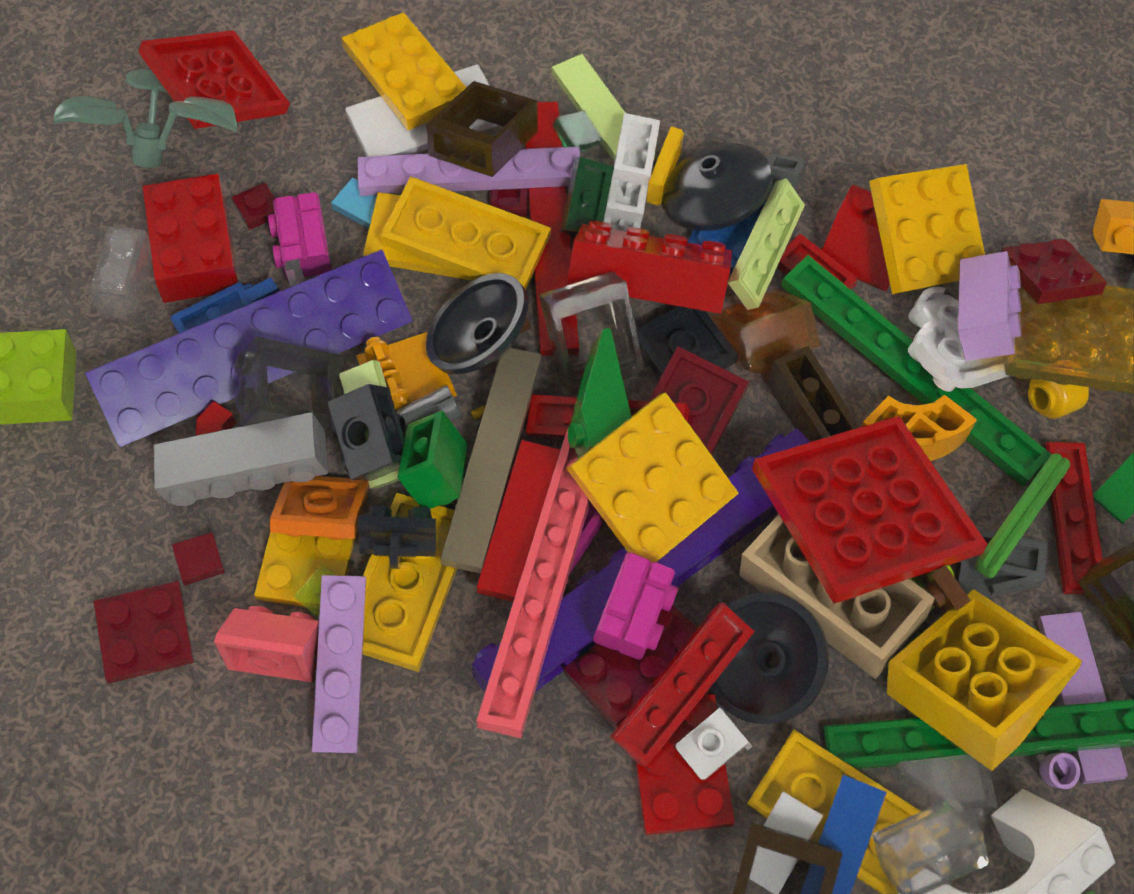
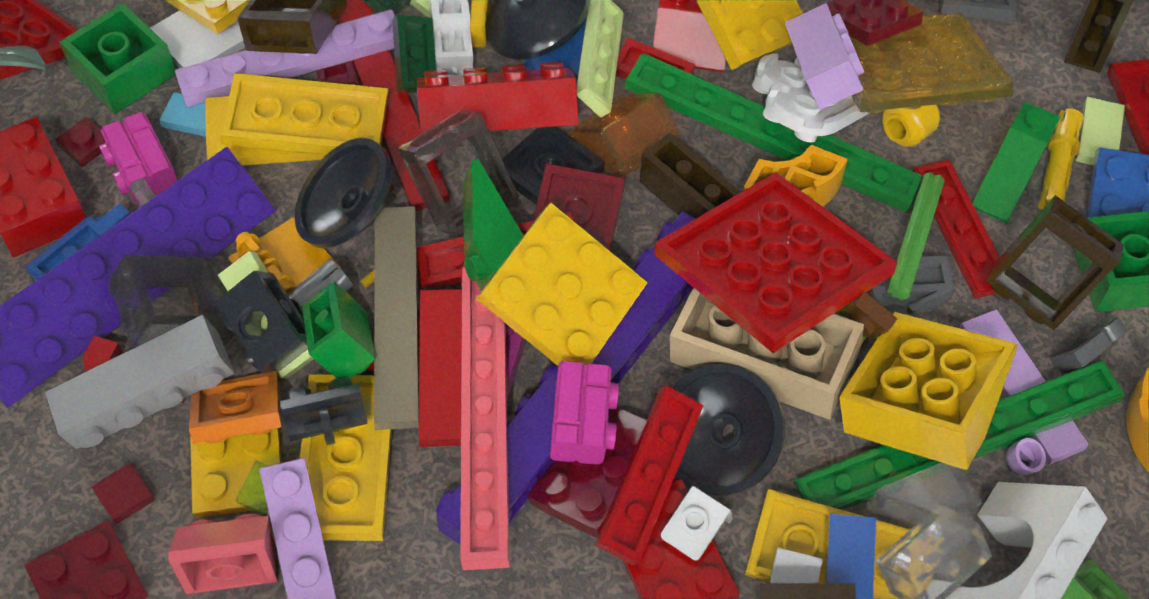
camera: 15 degrees left, 5 degrees down
(309, 132) = (118, 58): none -> green brick

